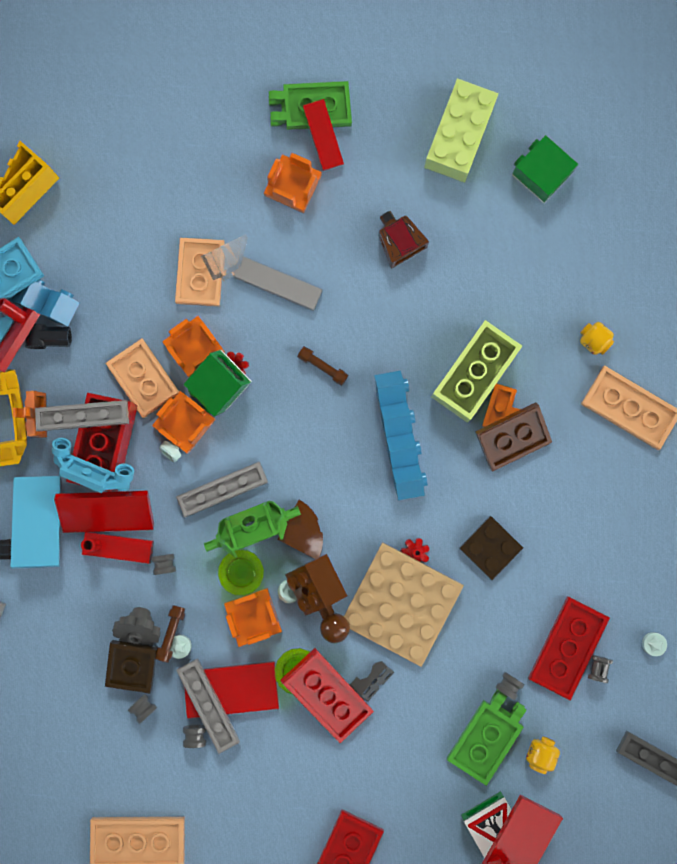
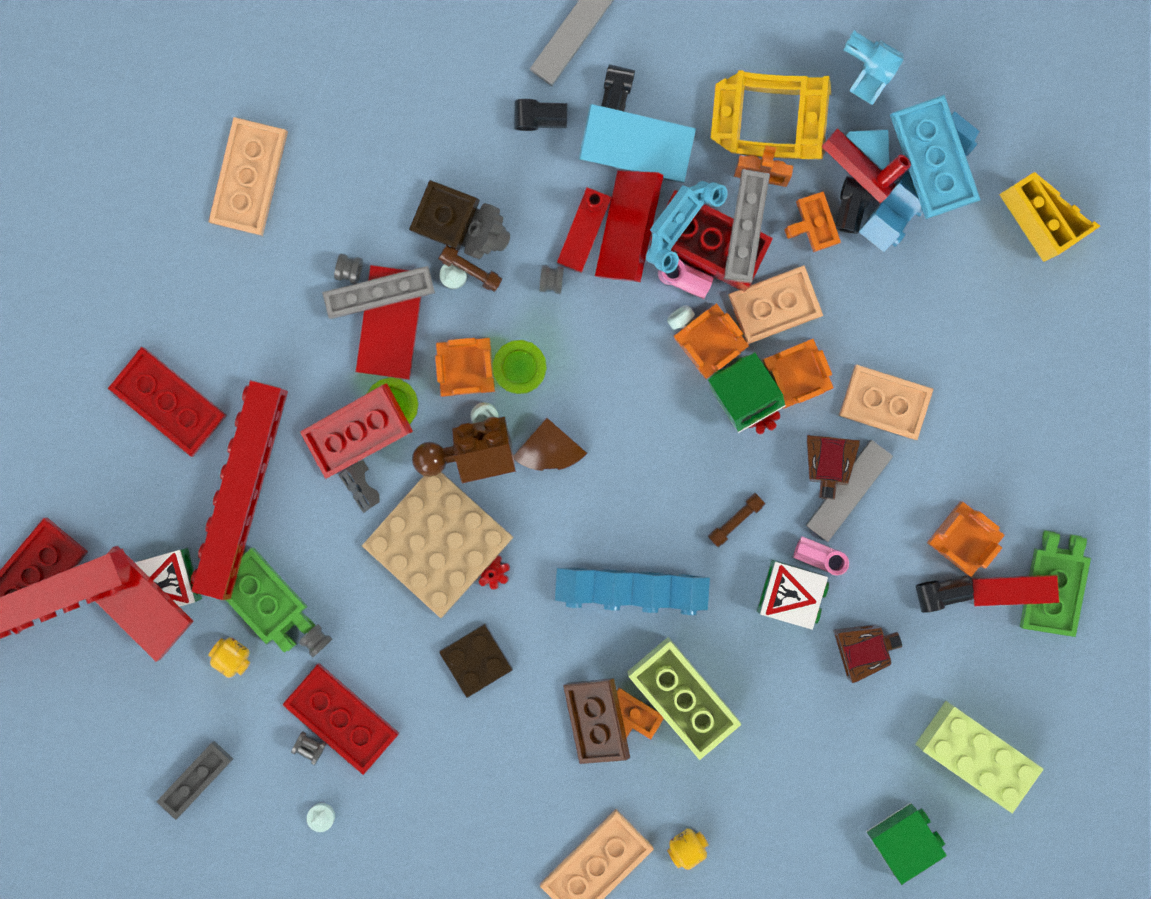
camera: 105 degrees right, 5 degrees up
(32, 612) = (531, 115): none -> black piece
(68, 362) = (816, 222): none -> orange plate
(138, 453) = (689, 280): none -> bright pink piece
(142, 708) = (393, 216): dark grey wheel -> none
(222, 489) = (621, 367): light grey tile -> none
(226, 258) = (893, 438): clear slope -> none
(235, 535) = (568, 413): bright green plate -> none
(257, 302) = (830, 462): none -> torso
(334, 293) = (819, 555): none -> bright pink piece
(341, 193) = (936, 595): none -> black piece
(371, 306) = (793, 594): none -> piece
(401, 782) = (239, 490): none -> red brick

